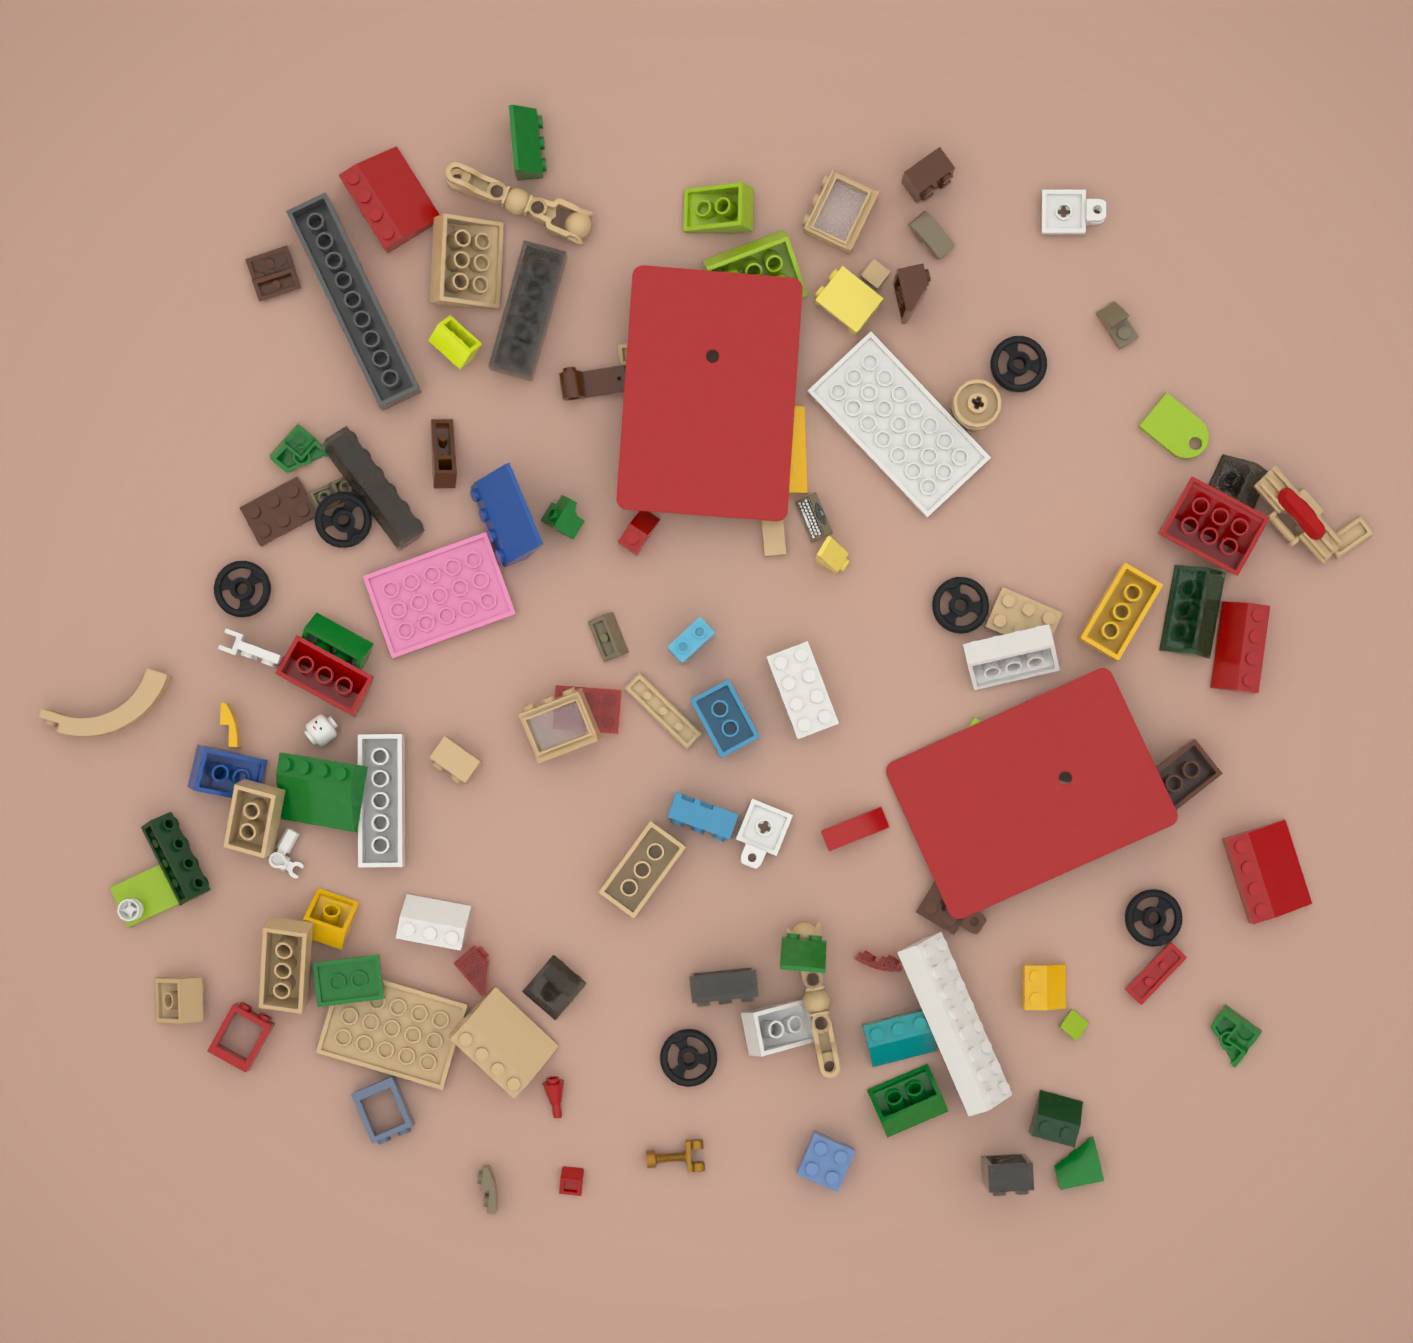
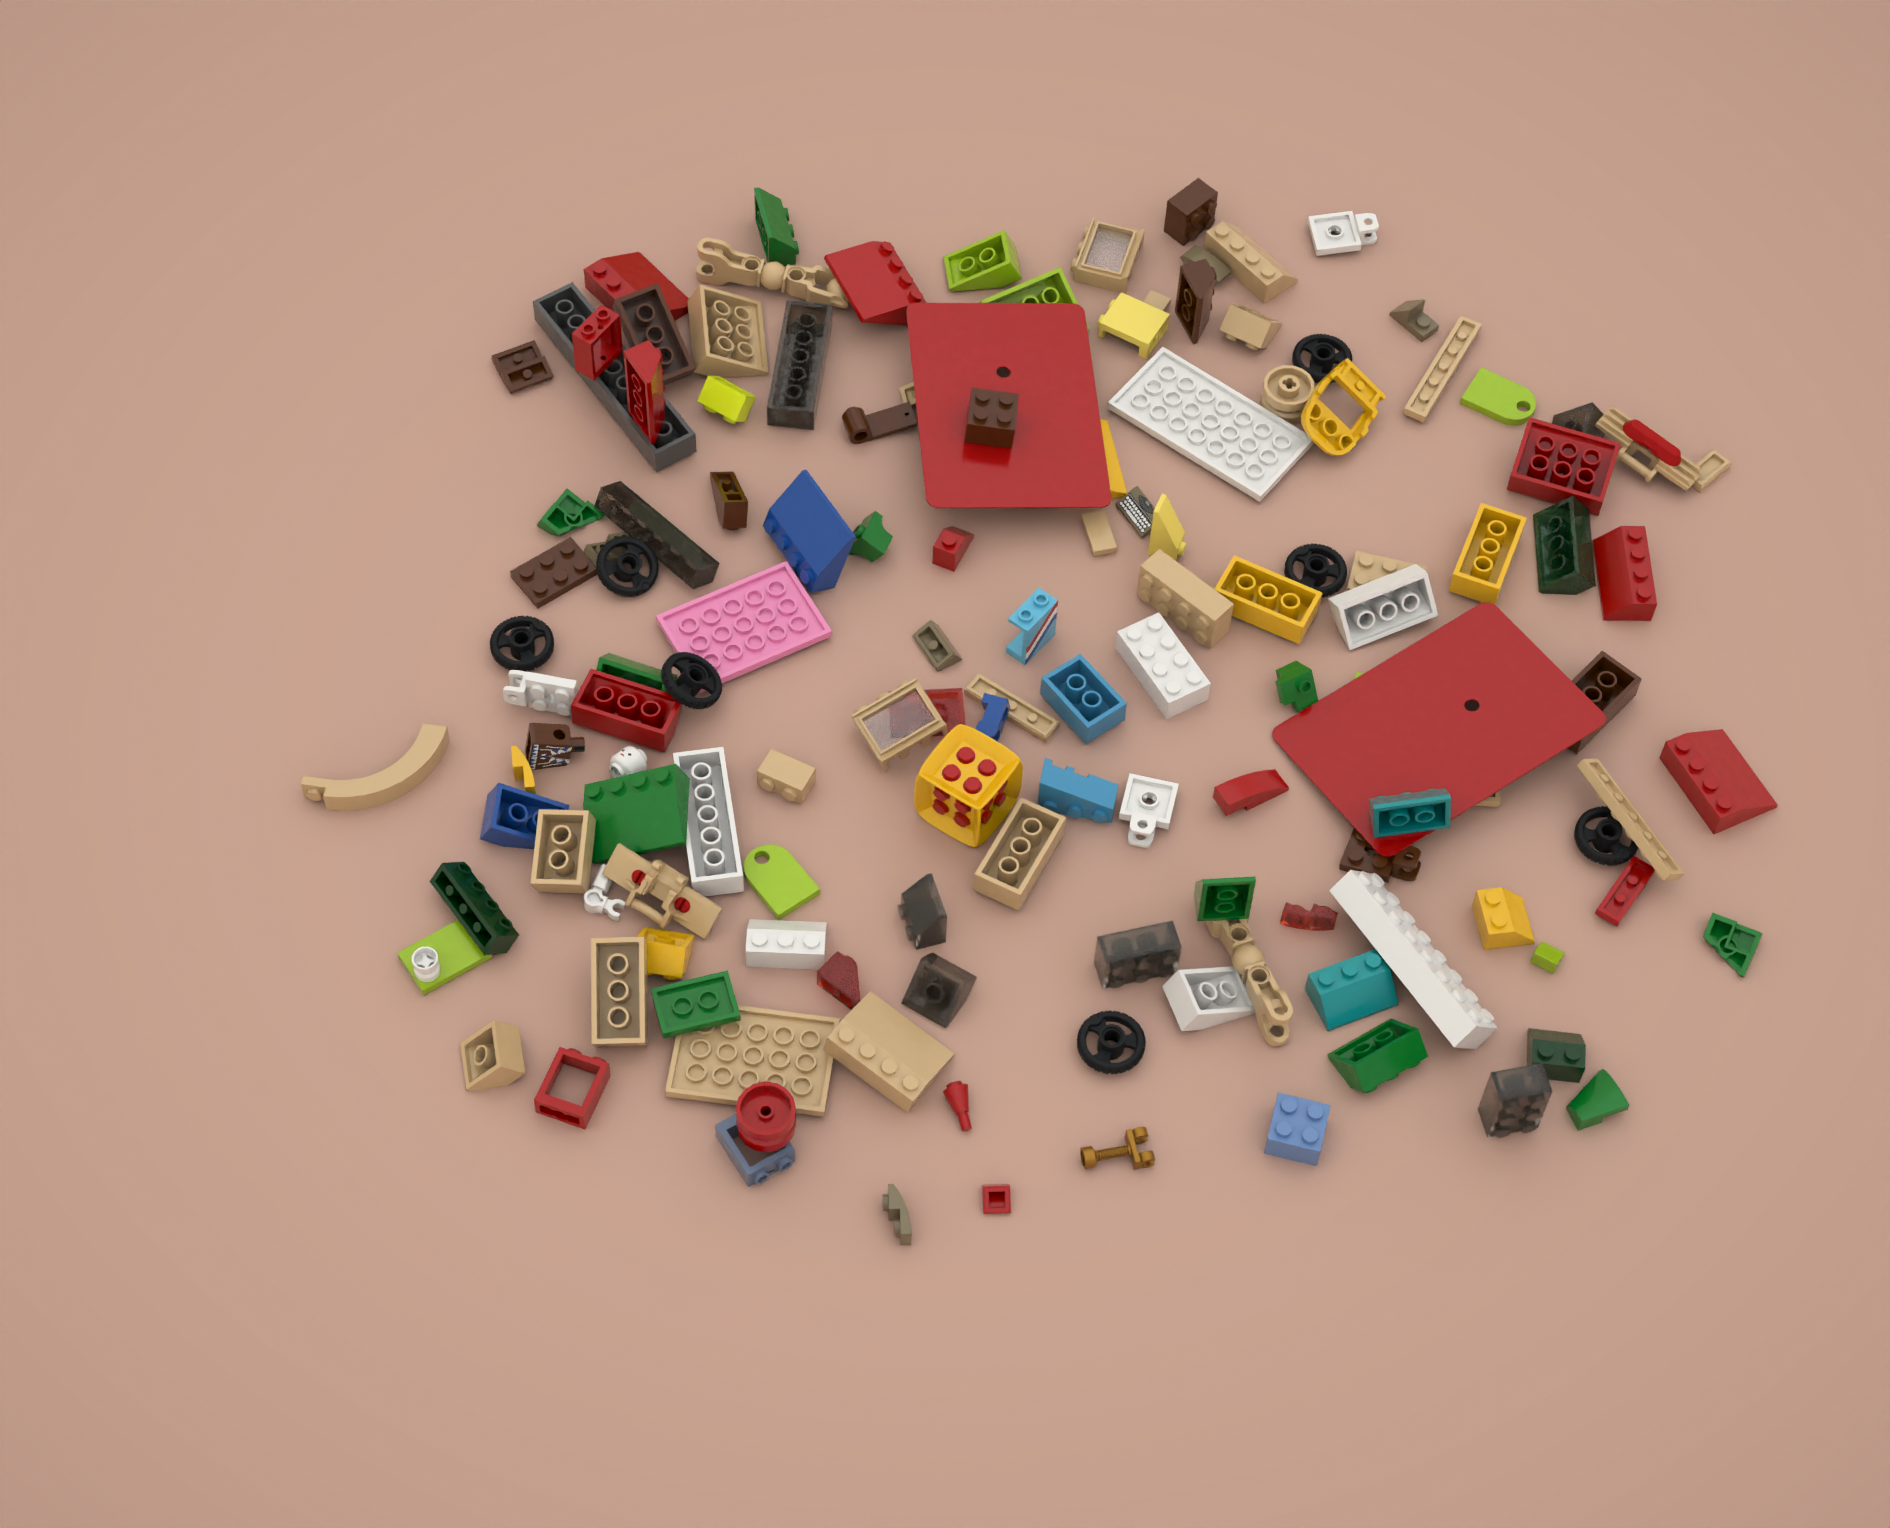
camera: 15 degrees left, 30 degrees down
(247, 703) = (550, 745): none -> reddish brown torso
(325, 854) = (666, 884): none -> tan piece
(335, 280) = (588, 358): none -> red window
(372, 676) = (694, 676): none -> black wheel
(373, 358) = (645, 388): none -> red slope
(393, 270) = (648, 317): none -> reddish brown brick
(399, 1095) = (766, 1116): none -> red wheel
(437, 860) = (780, 881): none -> lime tile
(551, 918) = (923, 913): none -> clear smoke slope
(606, 805) = (968, 785): none -> yellow piece
(611, 227) = (875, 282): none -> red slope
(643, 728) = (995, 715): none -> blue leg
(689, 418) = (991, 418): none -> reddish brown brick
(833, 626) = (1184, 599): none -> tan brick
(908, 635) = (1269, 599): none -> yellow brick
(915, 728) = (1296, 686): none -> green brick
(959, 315) = (1249, 326): none -> tan slope
(975, 234) = (1248, 261): none -> tan slope
(982, 885) = (1410, 812): none -> teal slope
(1003, 452) = (1324, 426): none -> yellow slope
(1129, 389) = (1442, 369): none -> tan plate
(1175, 914) = (1633, 823): none -> tan plate

